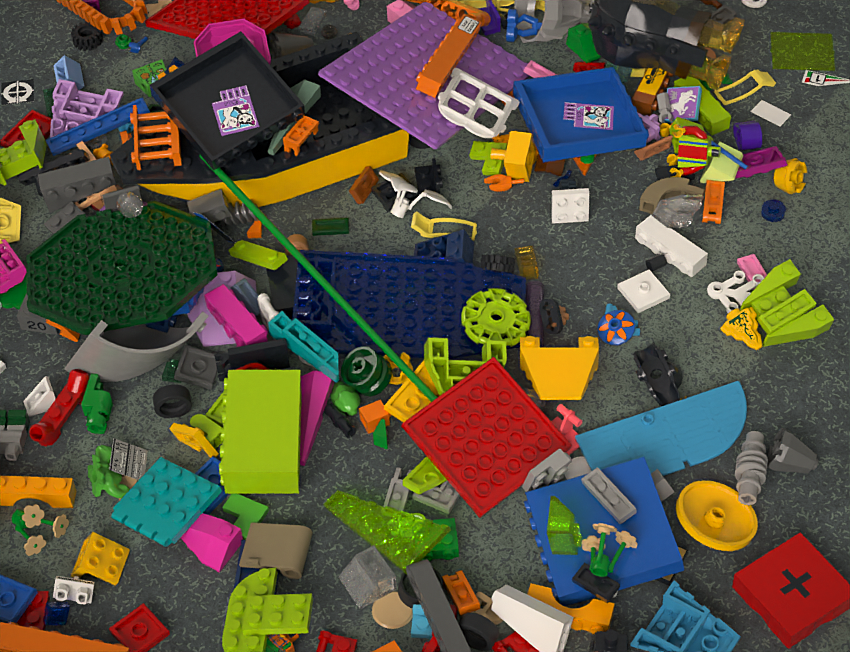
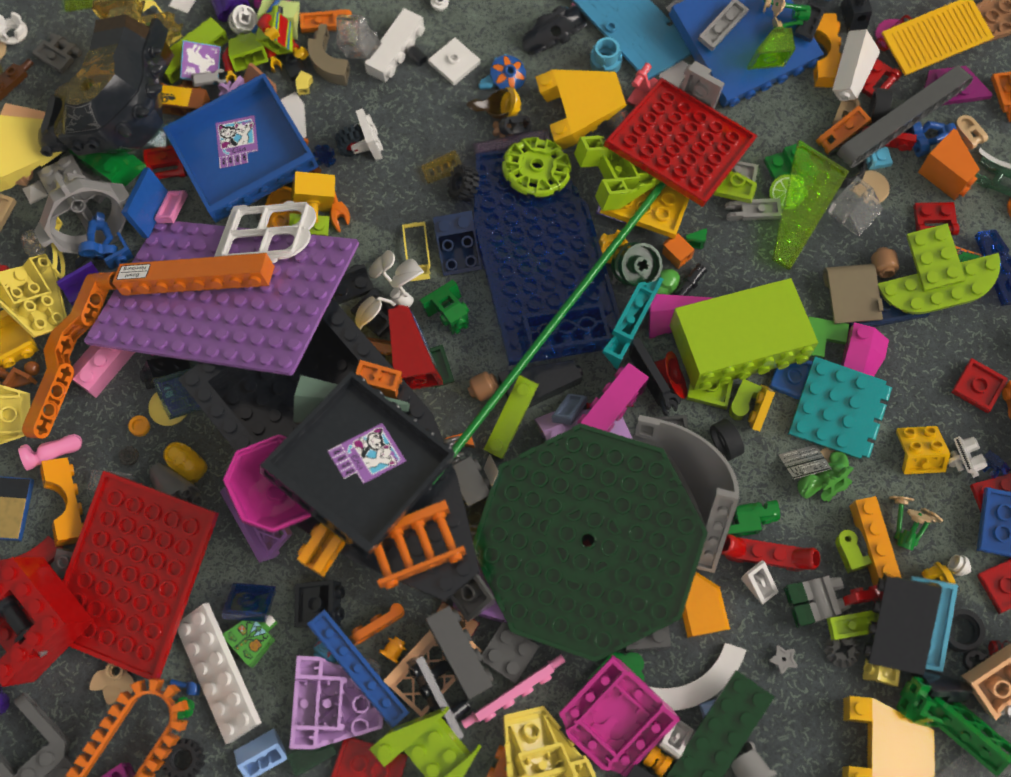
camera: 105 degrees left, 20 degrees up
(34, 215) = (522, 688): none -> bright pink plate
(34, 469) = (850, 553): none -> lime leg
(41, 359) = (704, 609): none -> light orange tile
(129, 204) = (494, 565): clear head -> none
(131, 57) = (218, 674): none -> white plate
(266, 310) = (594, 376): white plate -> none
(298, 583) = (885, 262): none -> medium nougat head
(345, 199) = (411, 350): none -> red slope
(372, 231) = (455, 314): none -> green tile
(507, 43) = (119, 257): none -> blue bracket
(543, 50) = (144, 202): none -> blue tile
(579, 312) = (499, 103): none -> piece
(611, 406) = (606, 55): none -> medium azure piece
(622, 170) = (296, 110): none -> white sticker
(647, 176) = (303, 83): none -> light yellow piece
(727, 136) = (243, 19): none -> white wheel

